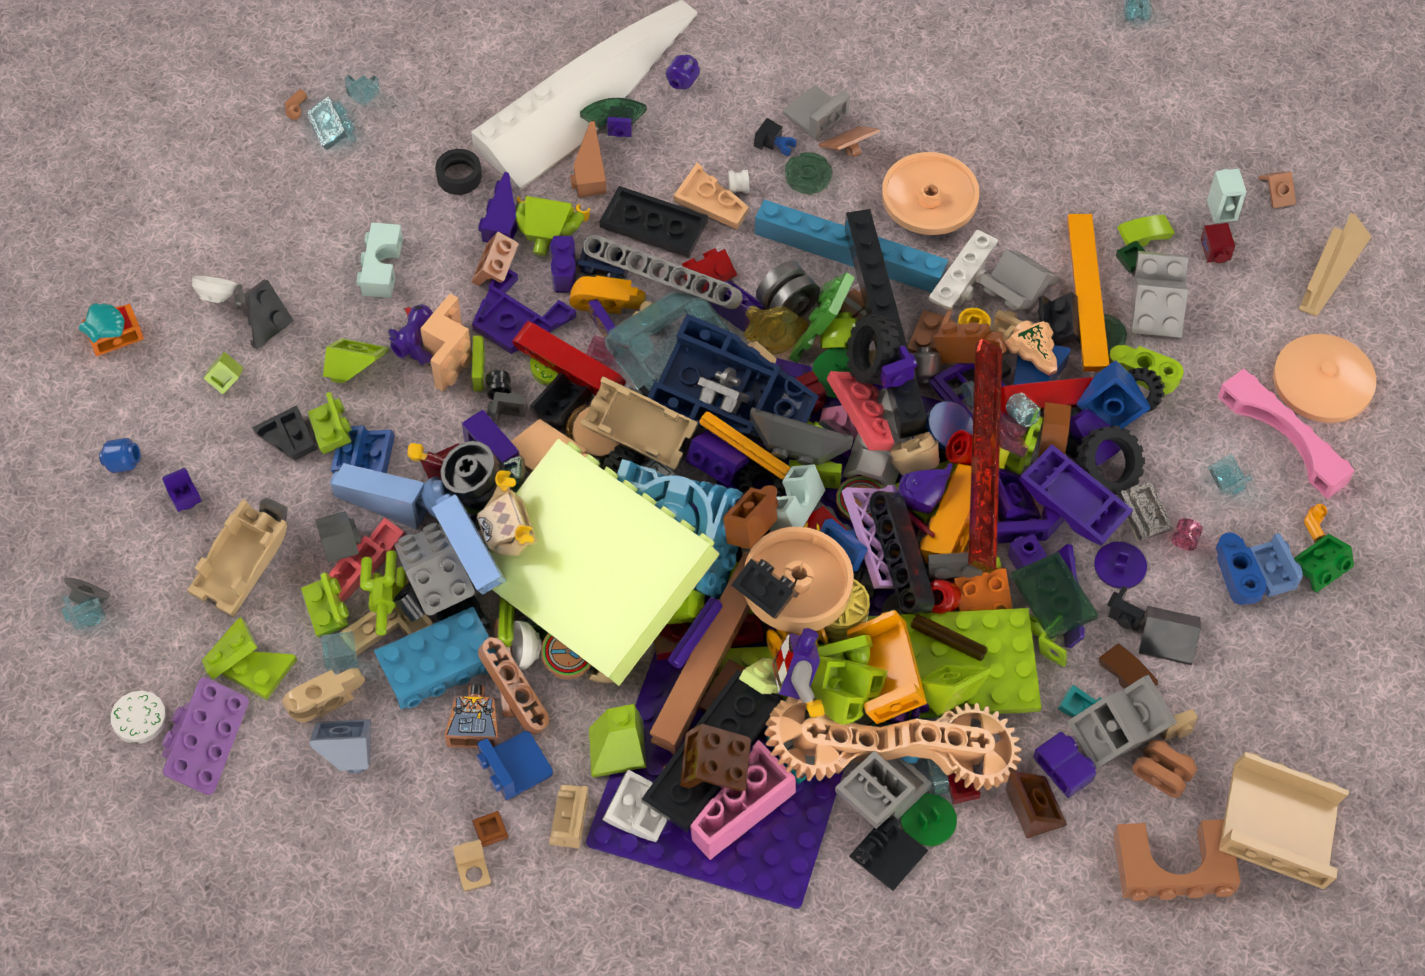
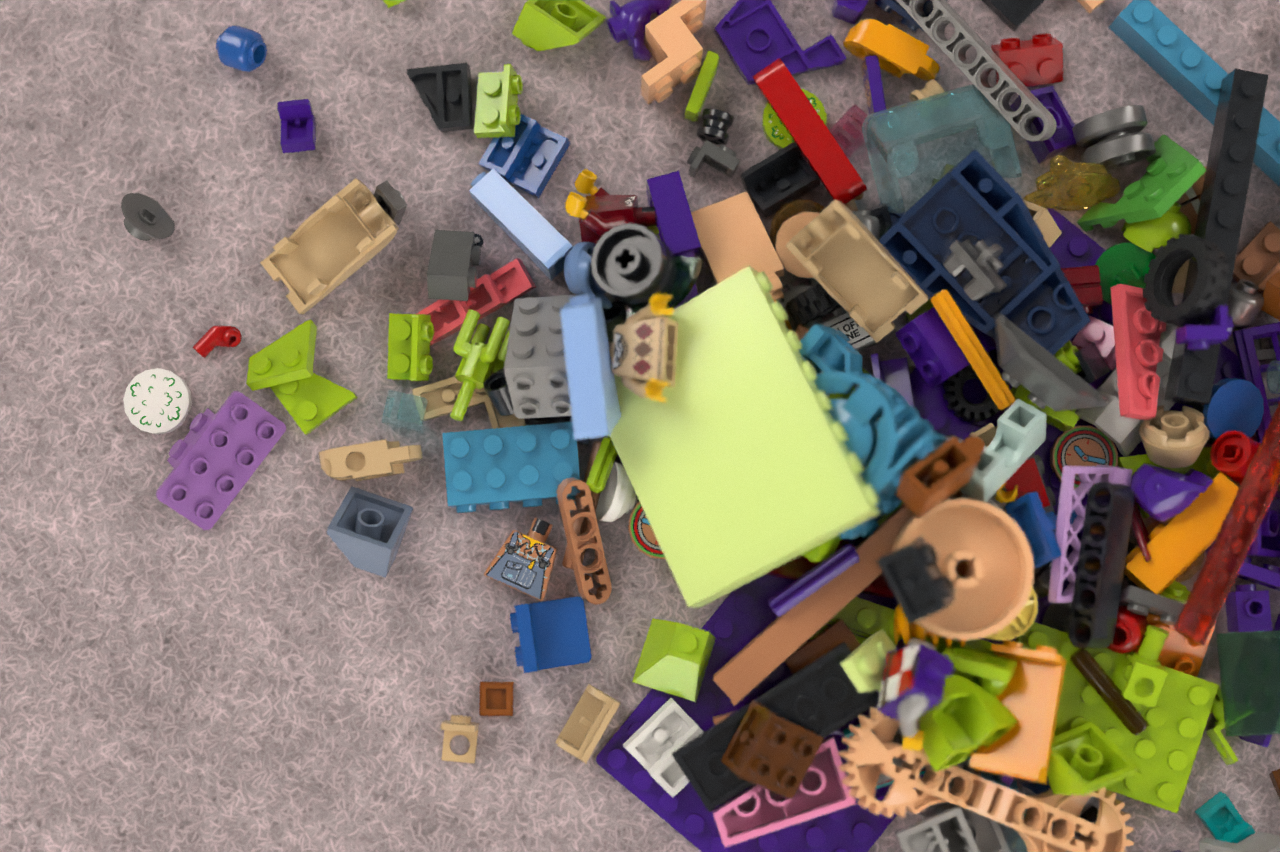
camera: 20 degrees right, 25 degrees up
(83, 615) = (138, 249): clear light blue bracket -> none
(170, 655) = (218, 336): none -> red arm
(967, 605) = (1147, 665): none -> lime bracket

